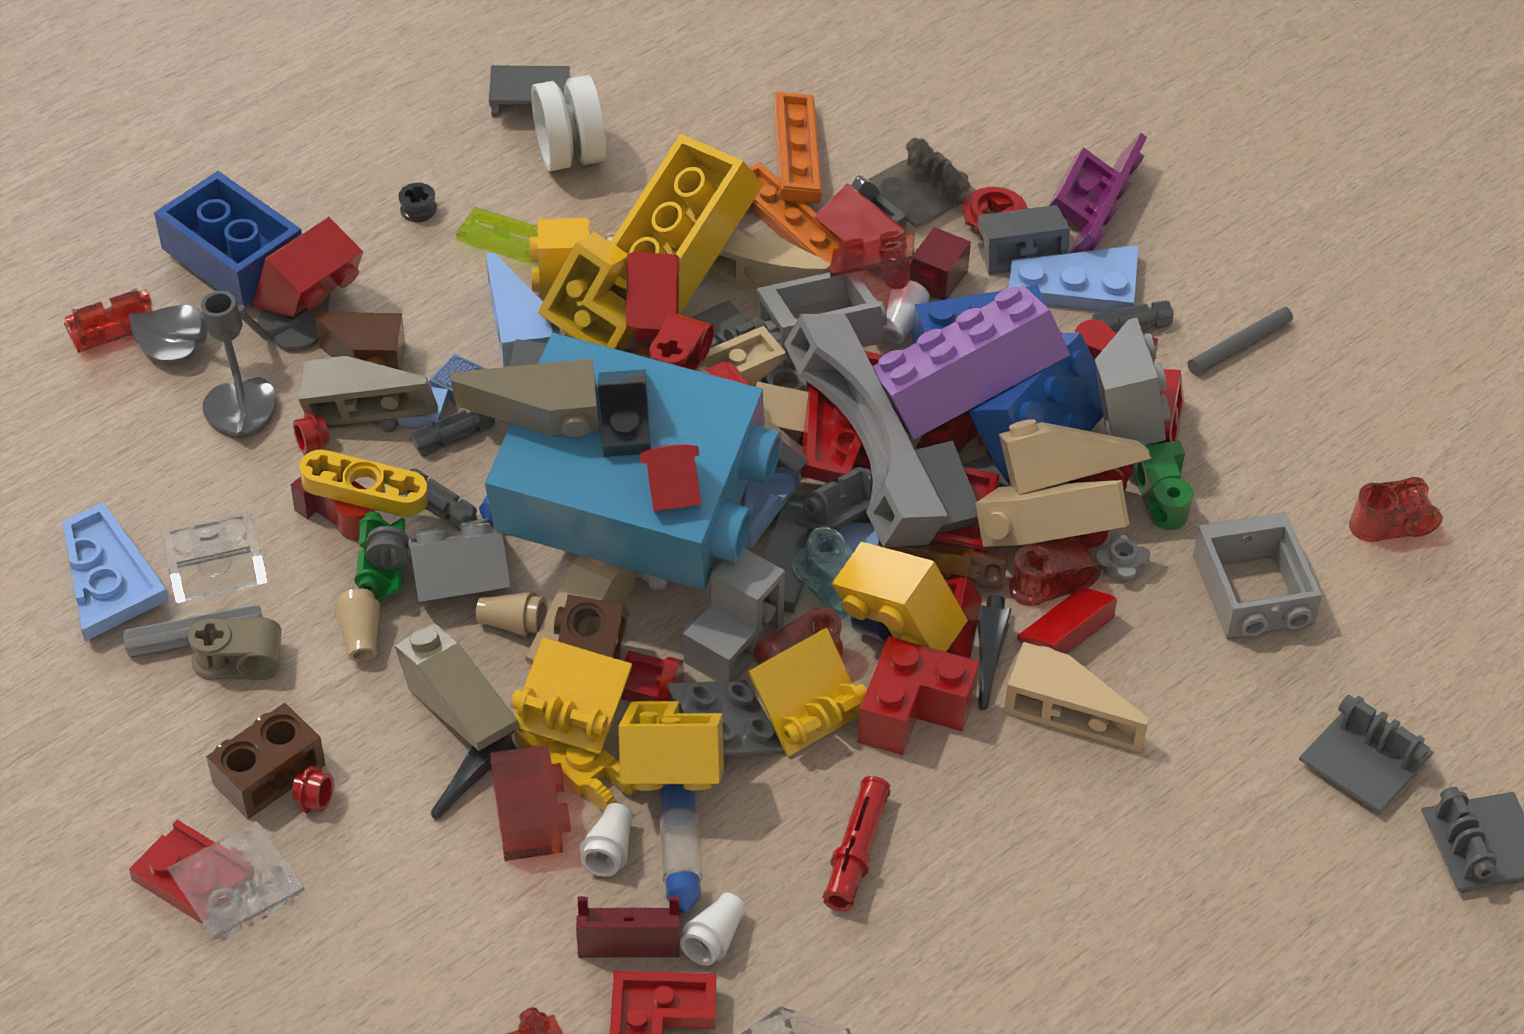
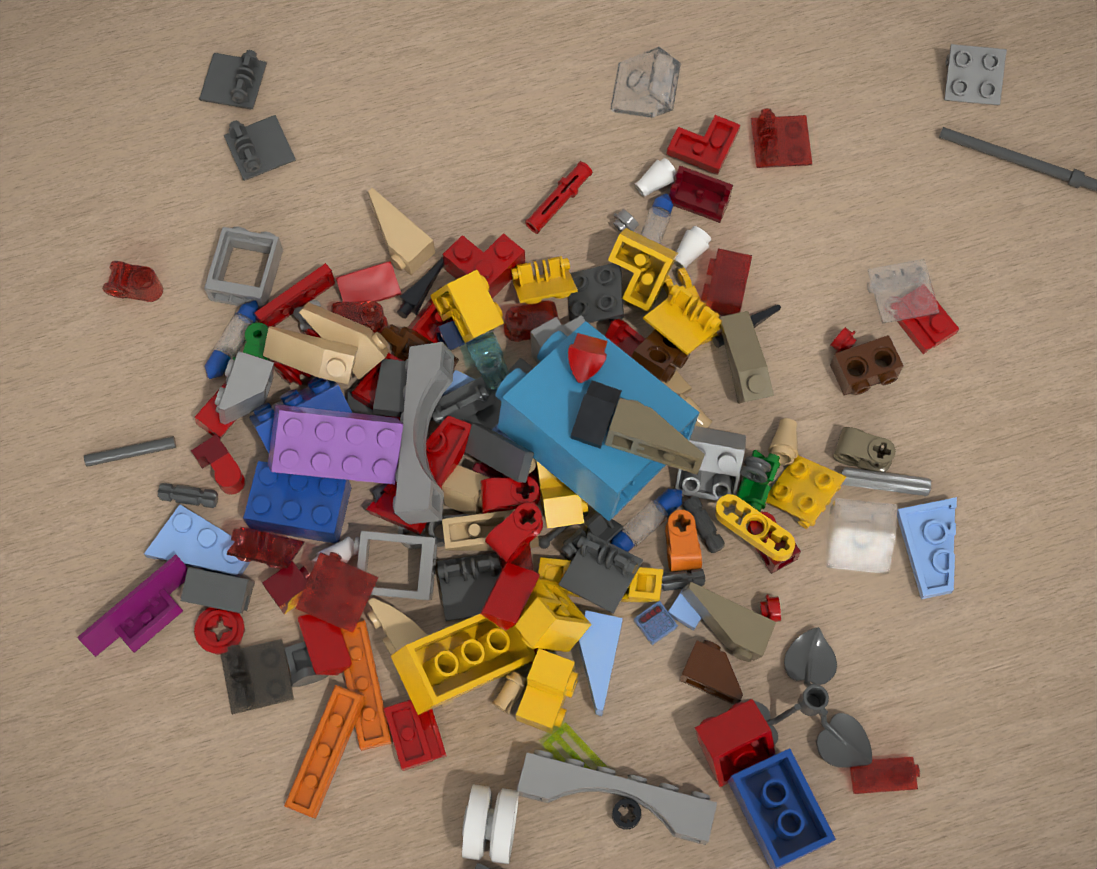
camera: 155 degrees left, 20 degrees up
(306, 575) = (805, 490): none -> yellow hinge
(458, 462) = (682, 547): none -> orange piece
(517, 190) = (682, 814): none -> light grey arch
(731, 843) = (625, 220): none -> light grey plate
(990, 264) = (264, 547): none -> clear red hinge
(1157, 565) = (296, 296): none -> red tile
(1208, 485) = (231, 340): none -> piece

